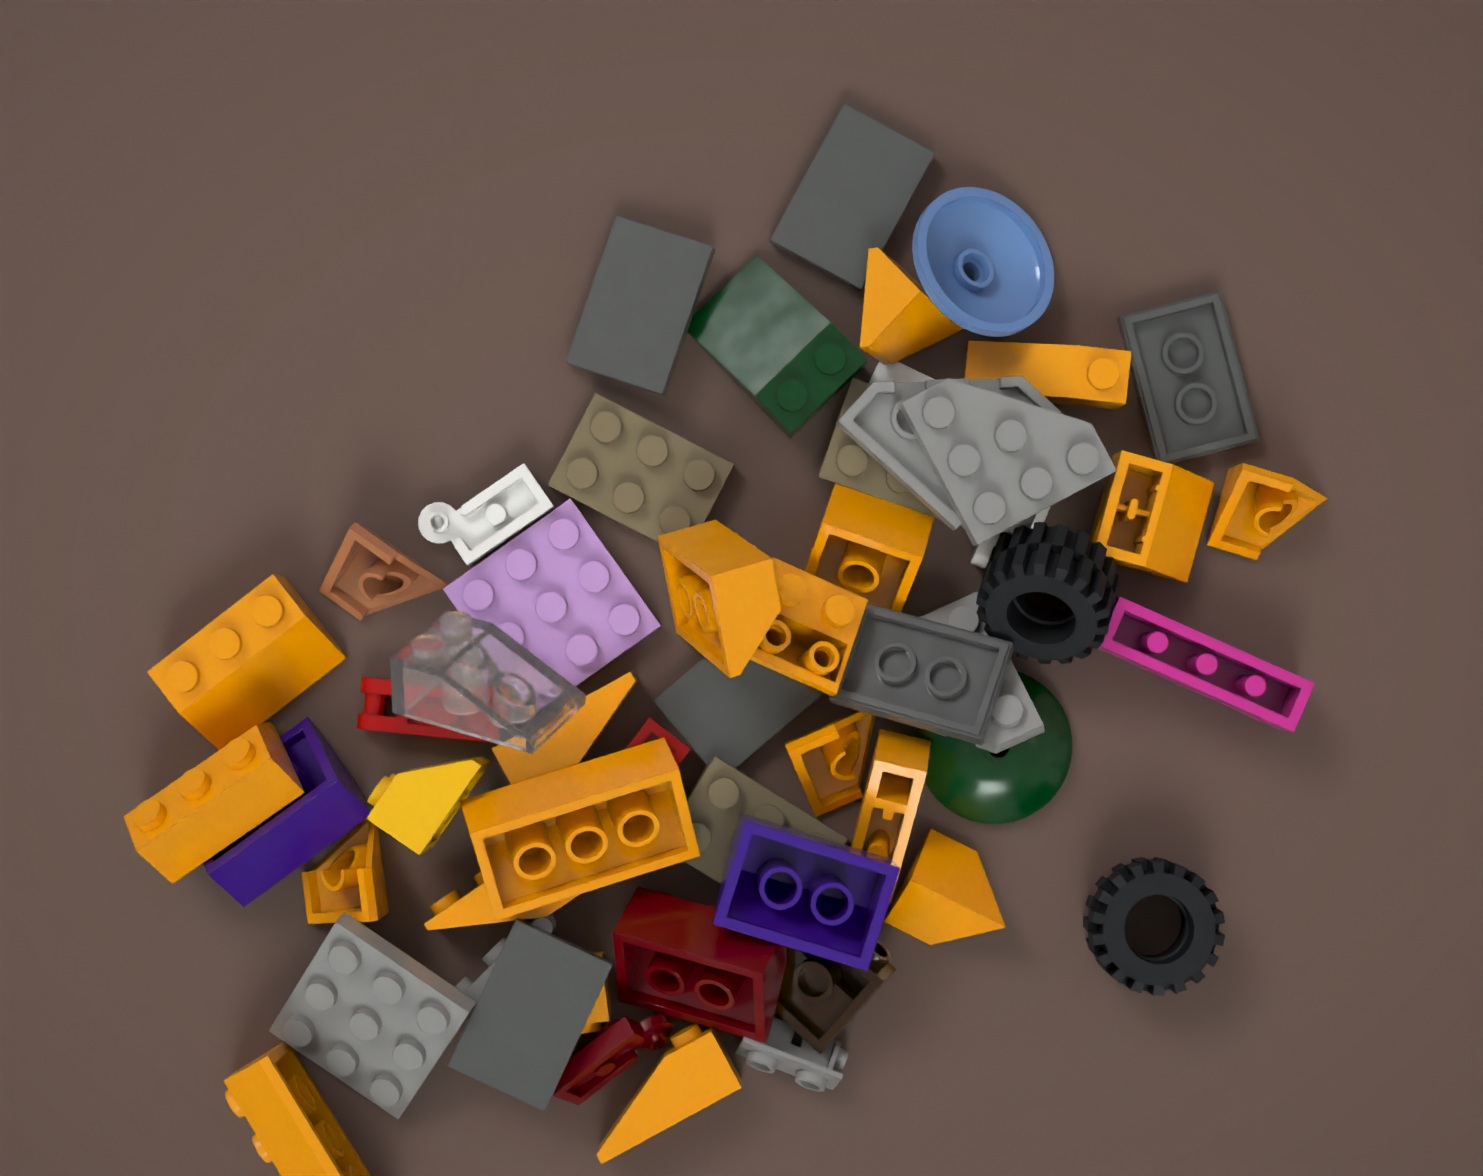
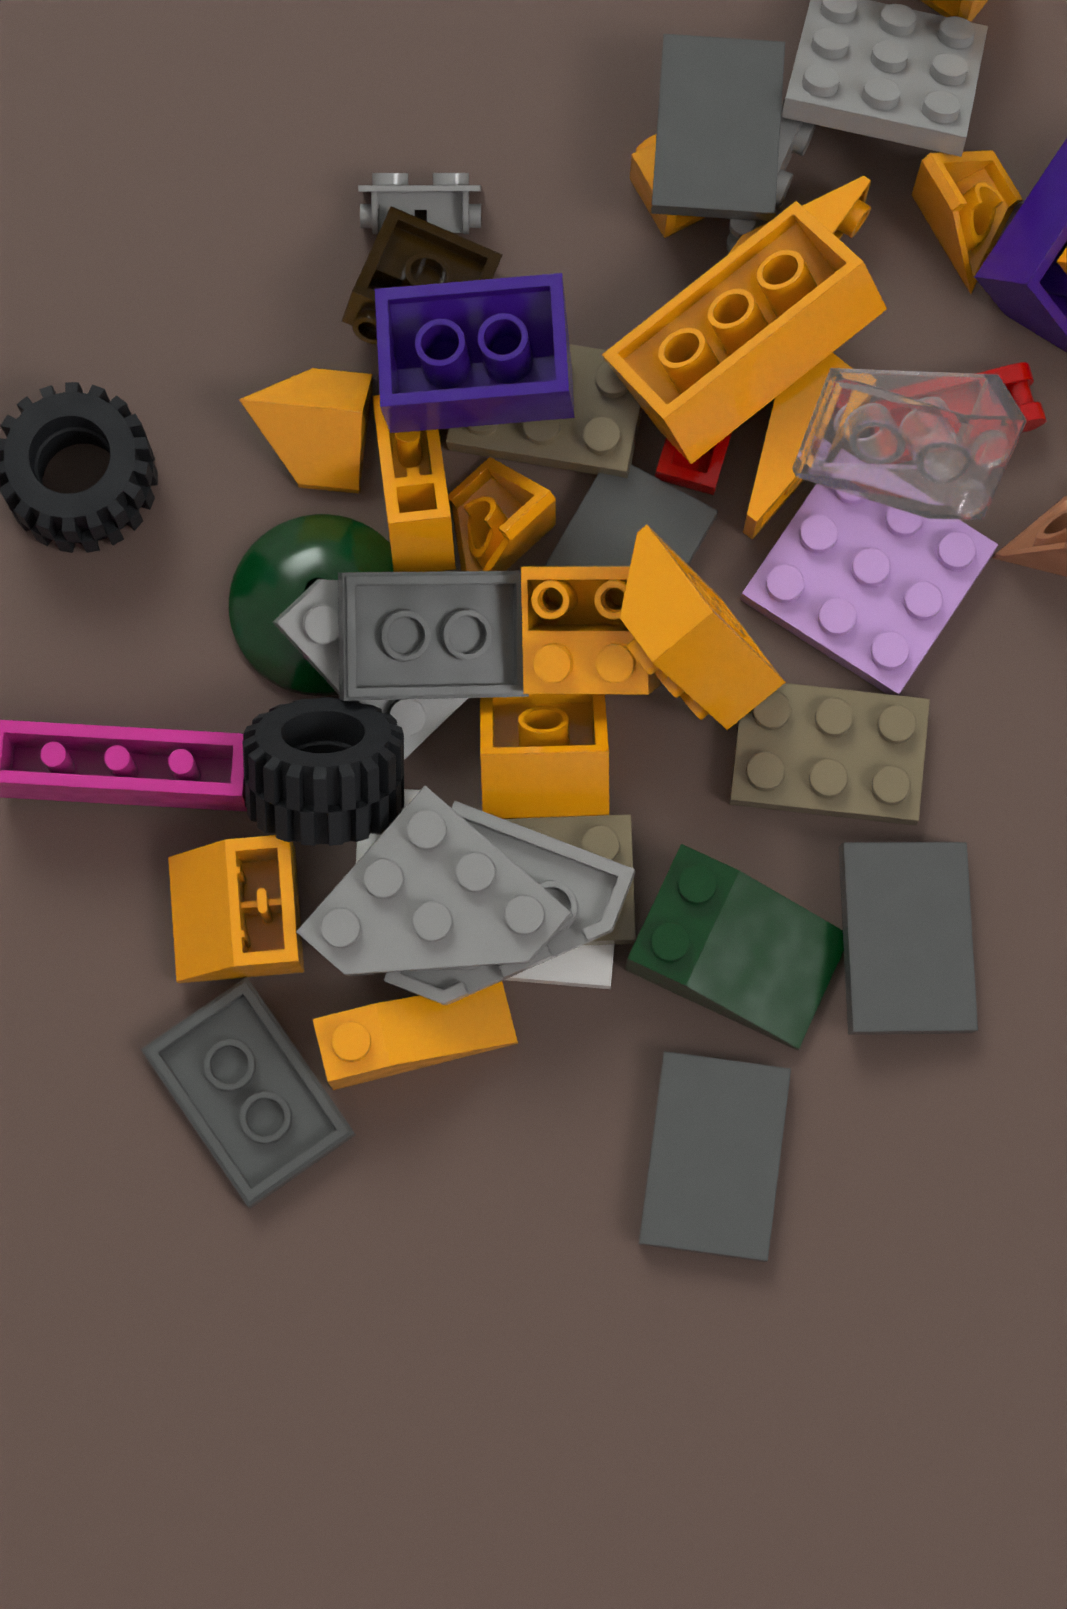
camera: 155 degrees right, 10 degrees down
(424, 800) = (928, 302): yellow slope -> none
(487, 517) = (979, 641): white hinge -> none
(610, 1055) = (616, 125): dark red hinge -> none
(681, 1083) = (525, 130): light orange slope -> none
(694, 970) = (595, 239): dark red slope -> none
(898, 312) = (609, 1039): light orange slope -> none
(999, 251) = (517, 1154): medium blue dish -> none
(1258, 509) = (116, 970): light orange slope -> none

